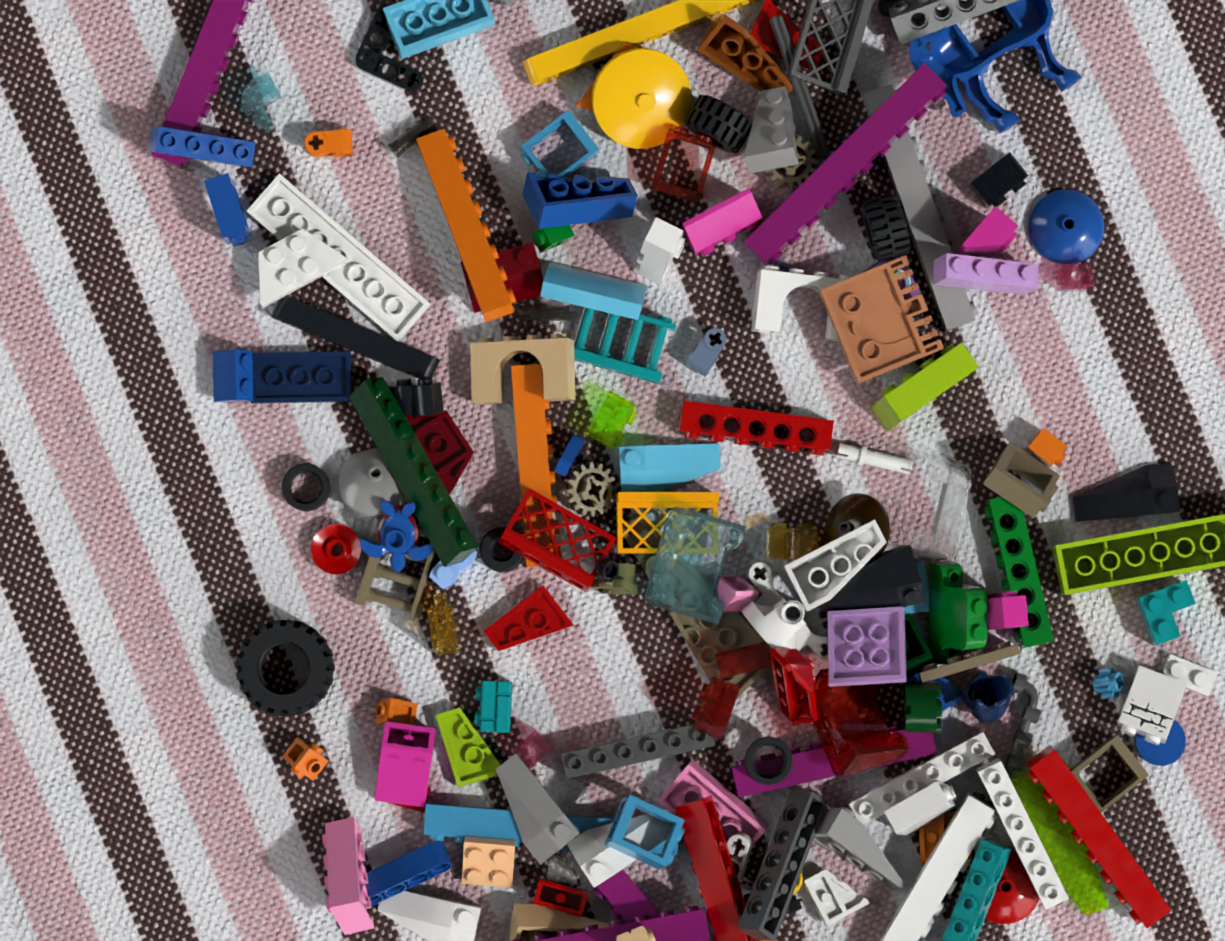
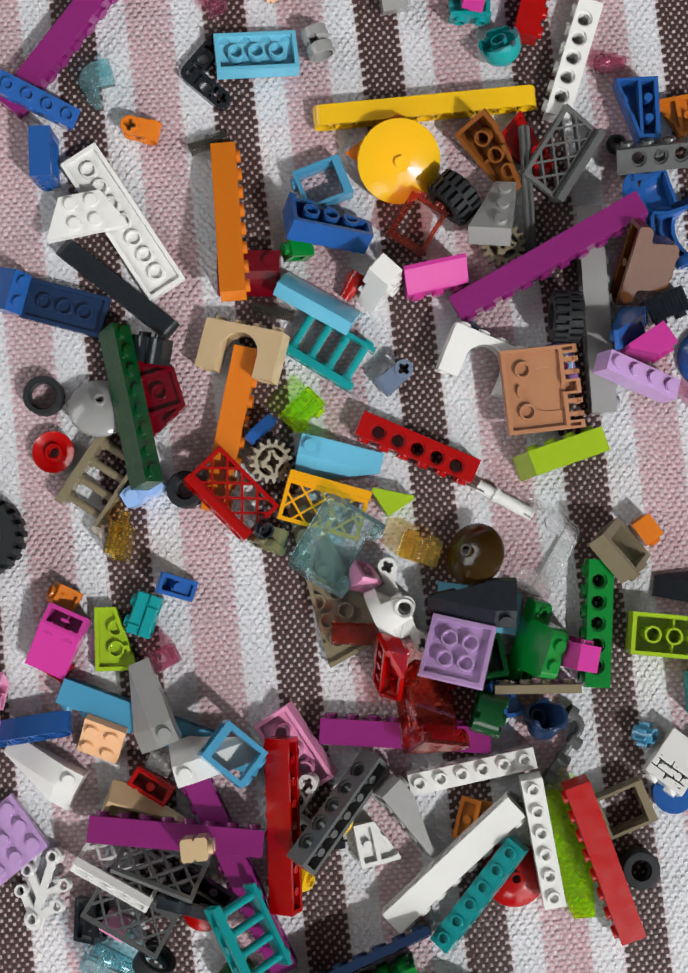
camera: 10 degrees right, 0 degrees up
(398, 536) = (102, 454): blue animal -> none
(524, 664) = (176, 586): none -> blue slope
(528, 620) = (193, 551): red wing -> none
(627, 257) = (351, 285): none -> red cone
(634, 750) = (248, 681): dark grey brick -> none
(716, 707) = (320, 667): clear red brick -> none
(743, 496) = (390, 500): none -> lime slope
(787, 756) = (347, 738): black tyre -> none
(831, 567) = (446, 578): white wedge -> none
(922, 808) = (466, 796): white brick -> none
(958, 140) = (644, 263): none -> brick
(961, 217) = (628, 326): none -> blue slope
(1159, 842) = (649, 877): none -> black tyre

